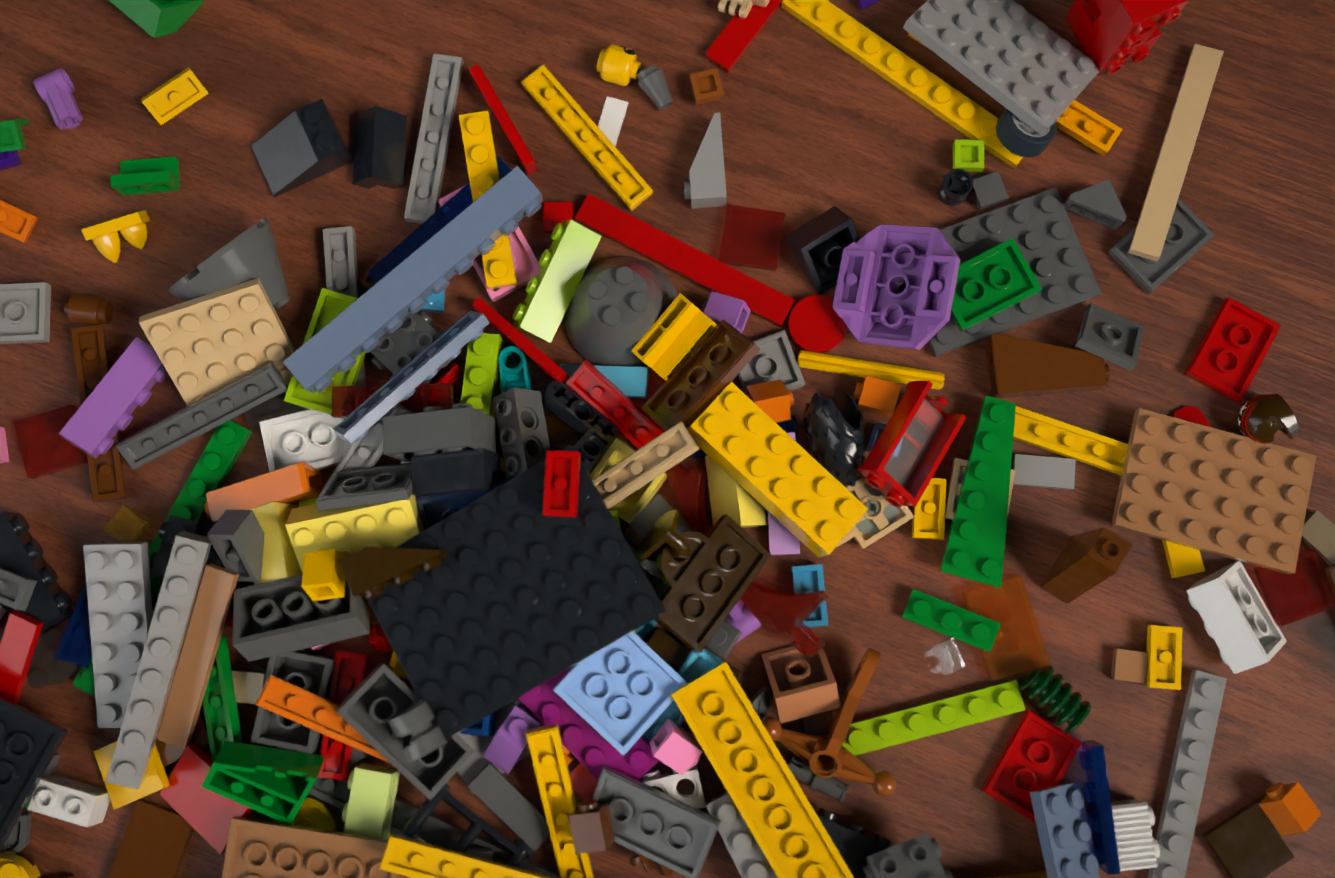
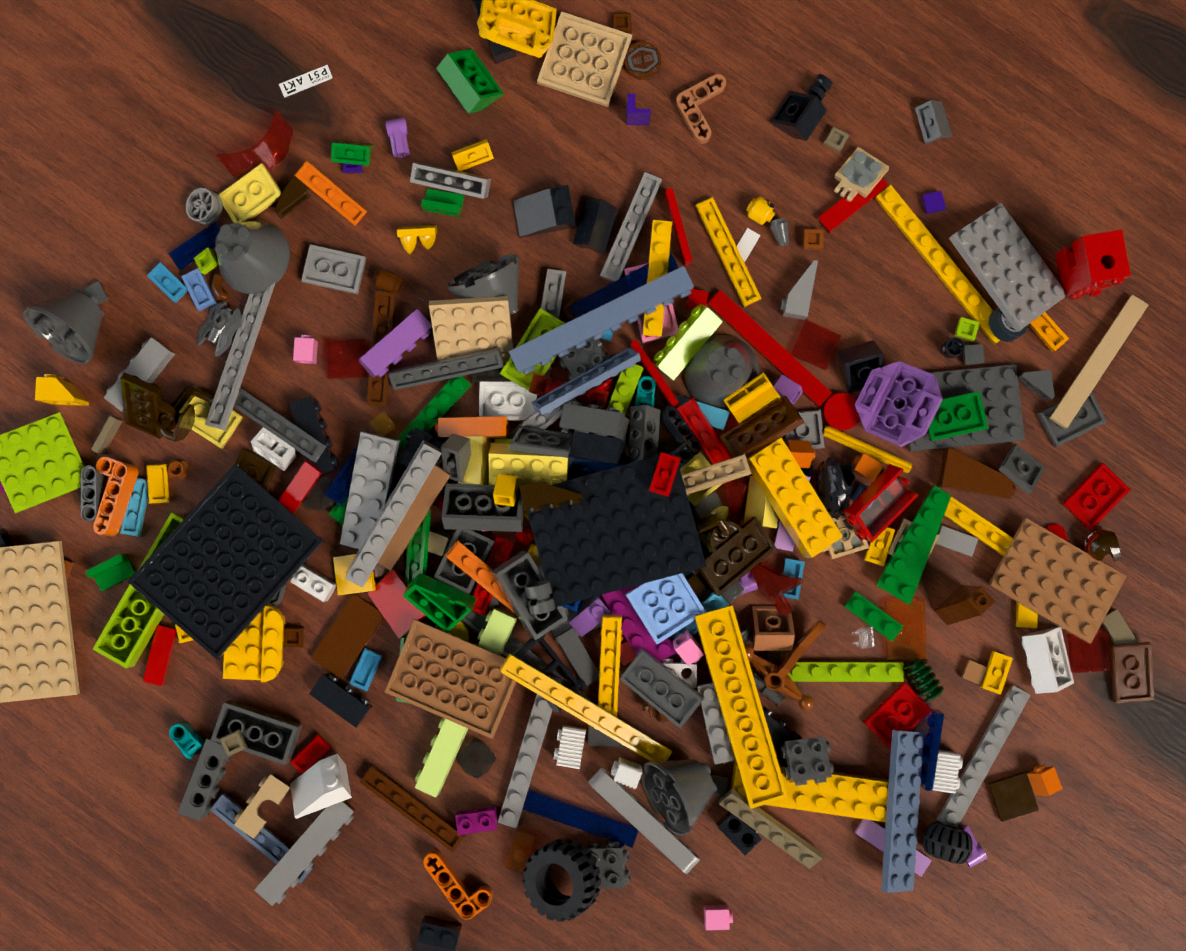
camera: 10 degrees right, 5 degrees up
(147, 137) = (450, 180): none -> light grey brick
(591, 827) = (626, 681): reddish brown brick -> none

